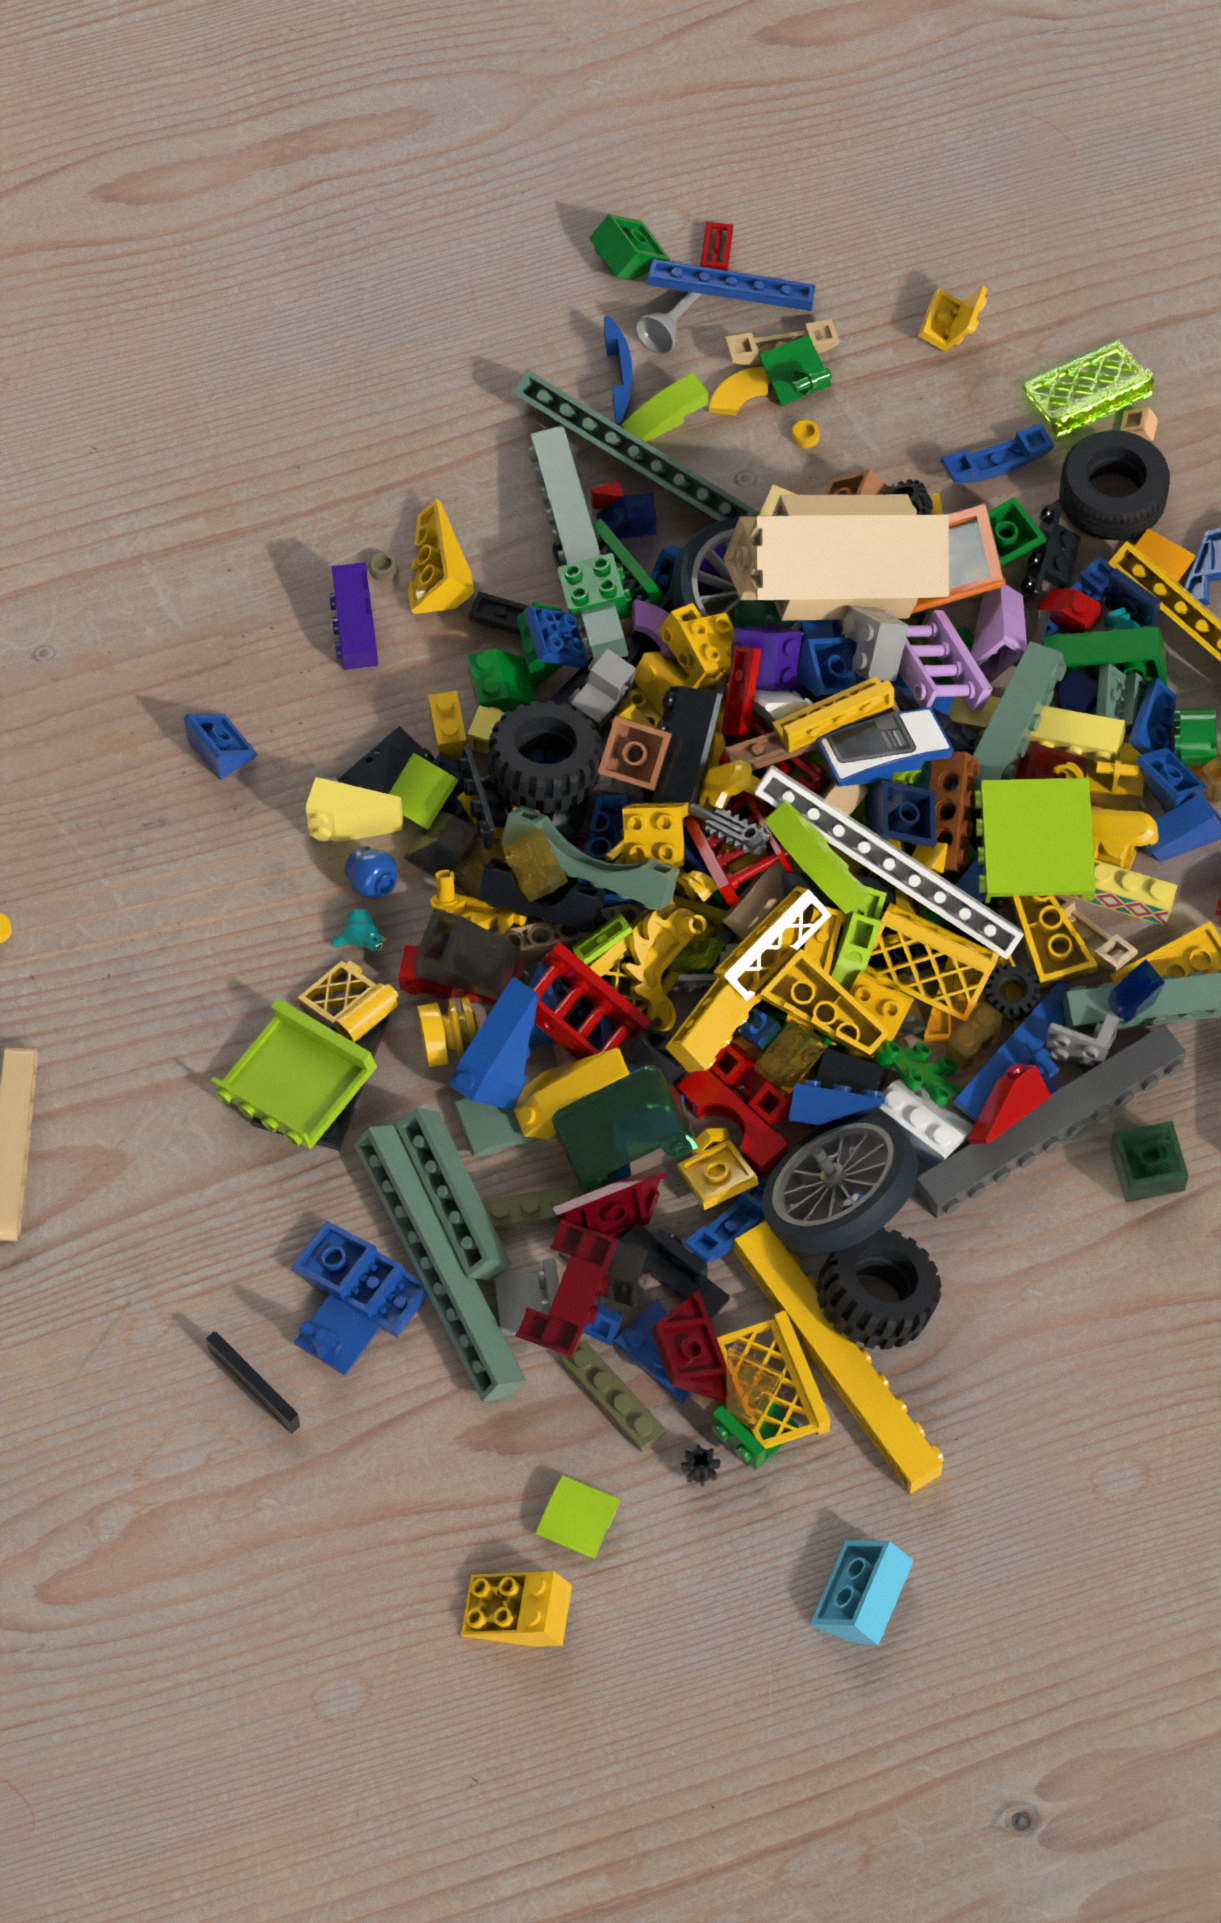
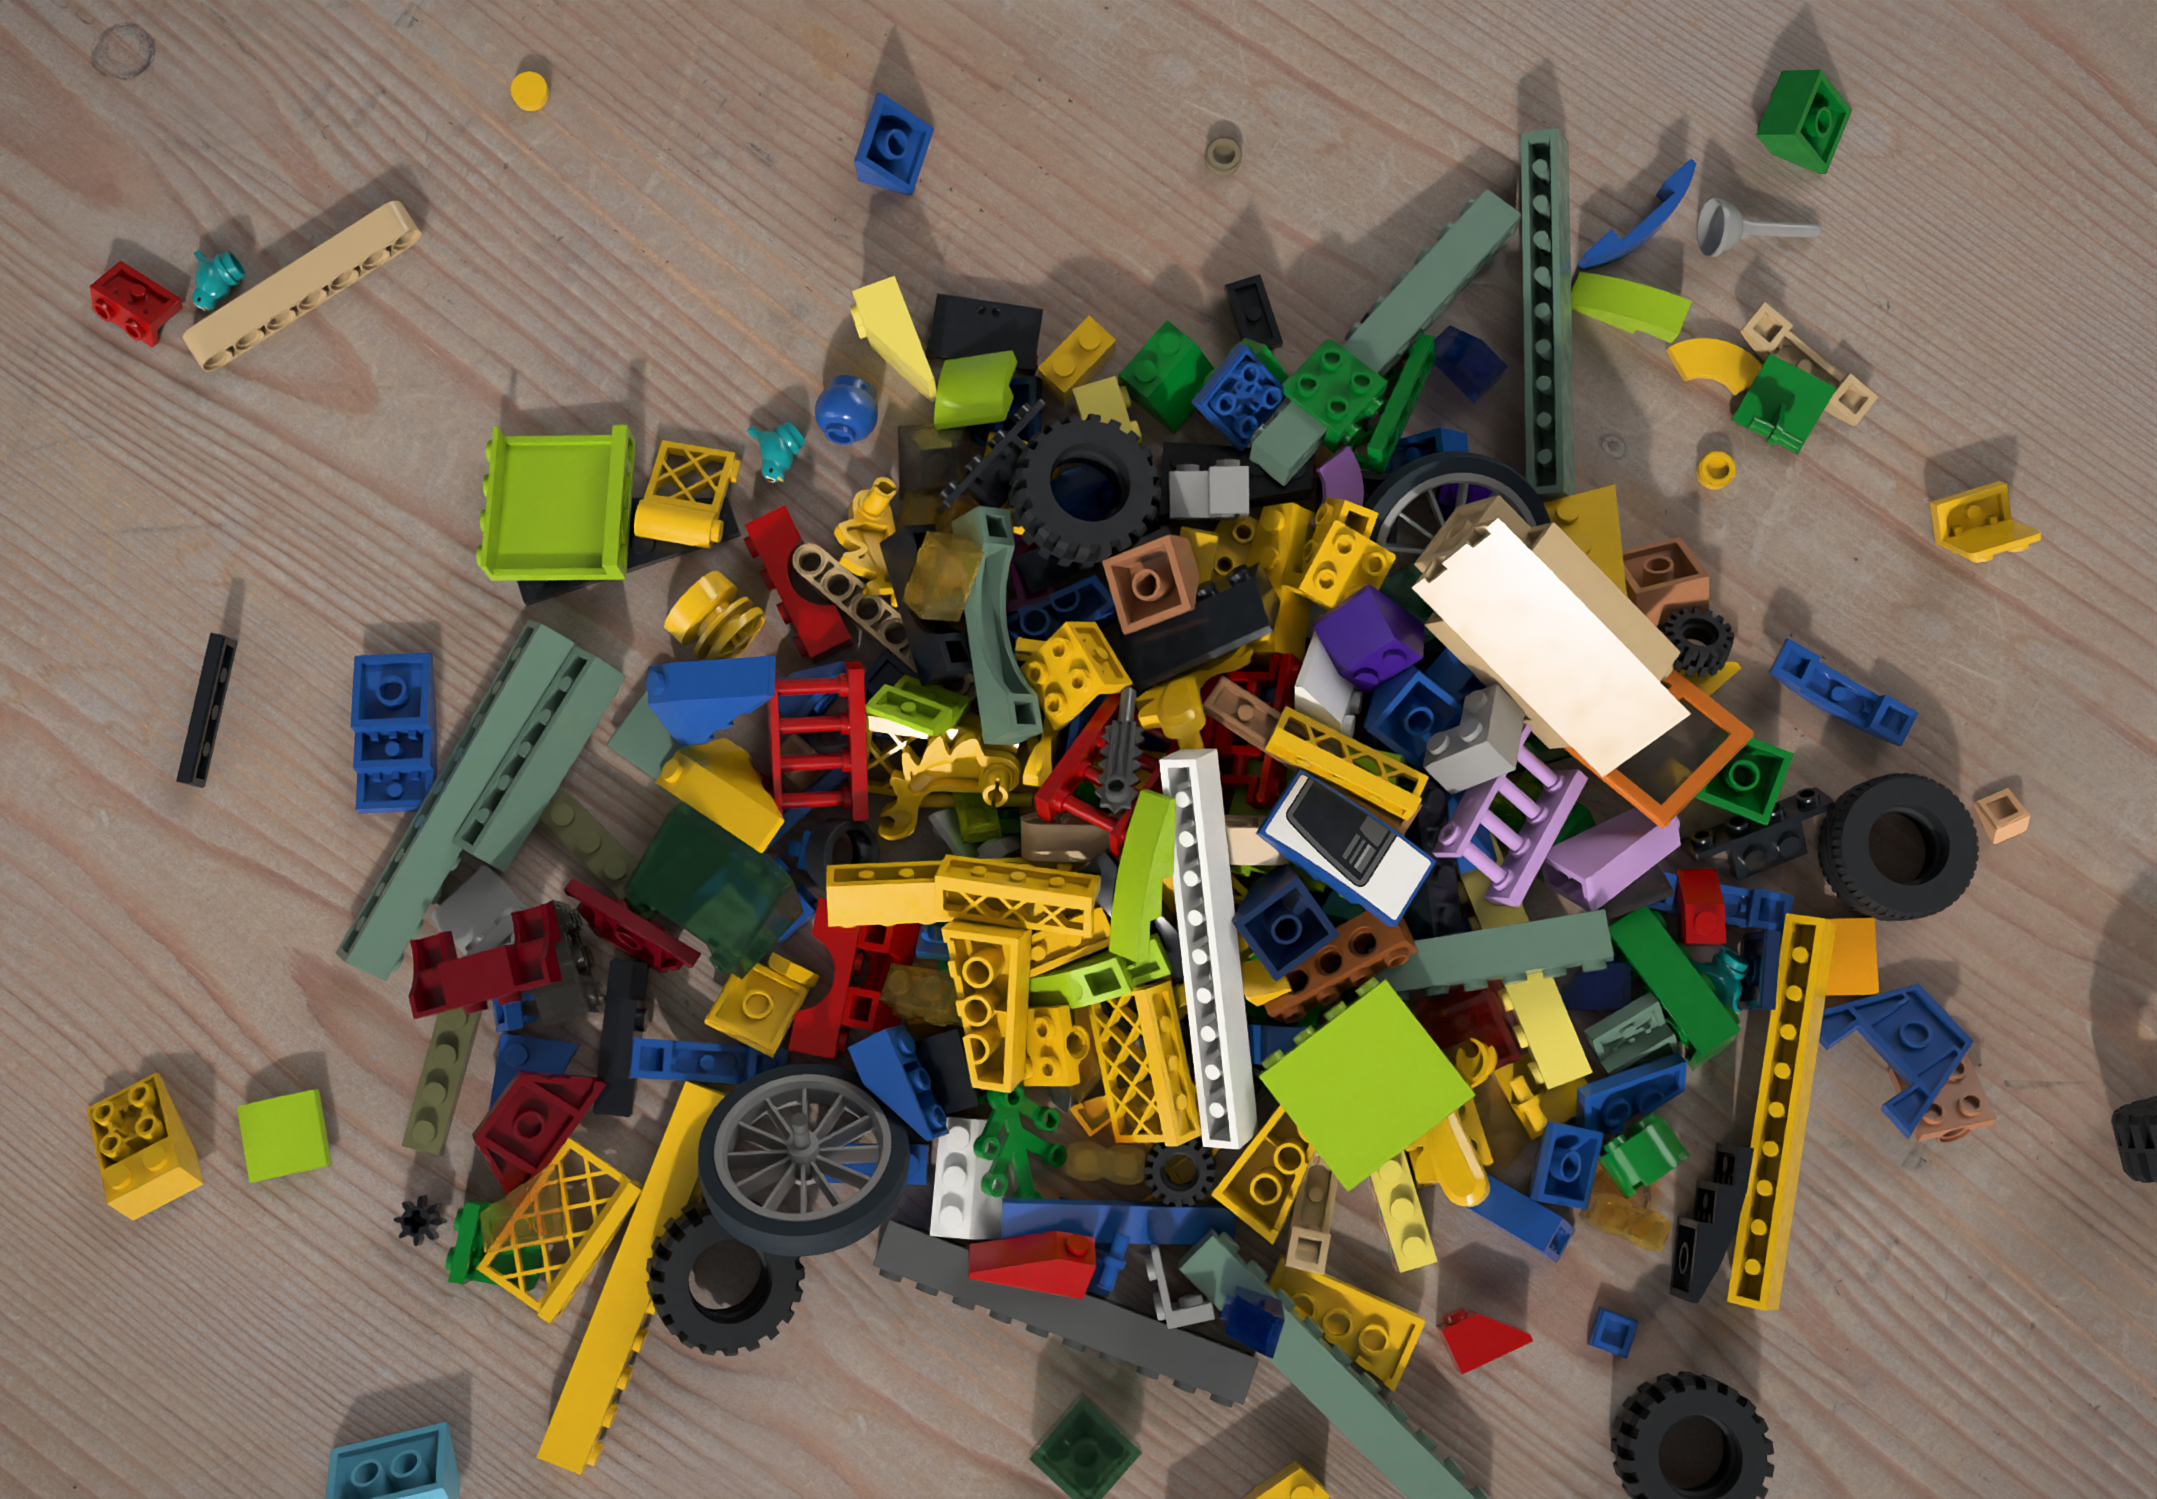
camera: 50 degrees right, 20 degrees up
(337, 1334) = (310, 753): blue plate -> none
(354, 616) = (1132, 172): dark purple wedge -> none
(440, 567) = (1258, 220): yellow wedge -> none
(465, 955) = (802, 579): clear smoke slope -> none
(606, 495) = (1476, 320): red slope -> none
(718, 227) = (1852, 226): red tile -> none
(731, 284) = (1840, 260): blue tile -> none
(741, 691) = (1305, 643): red tile -> none
(1100, 400) = (2000, 759): clear neon green fence -> none

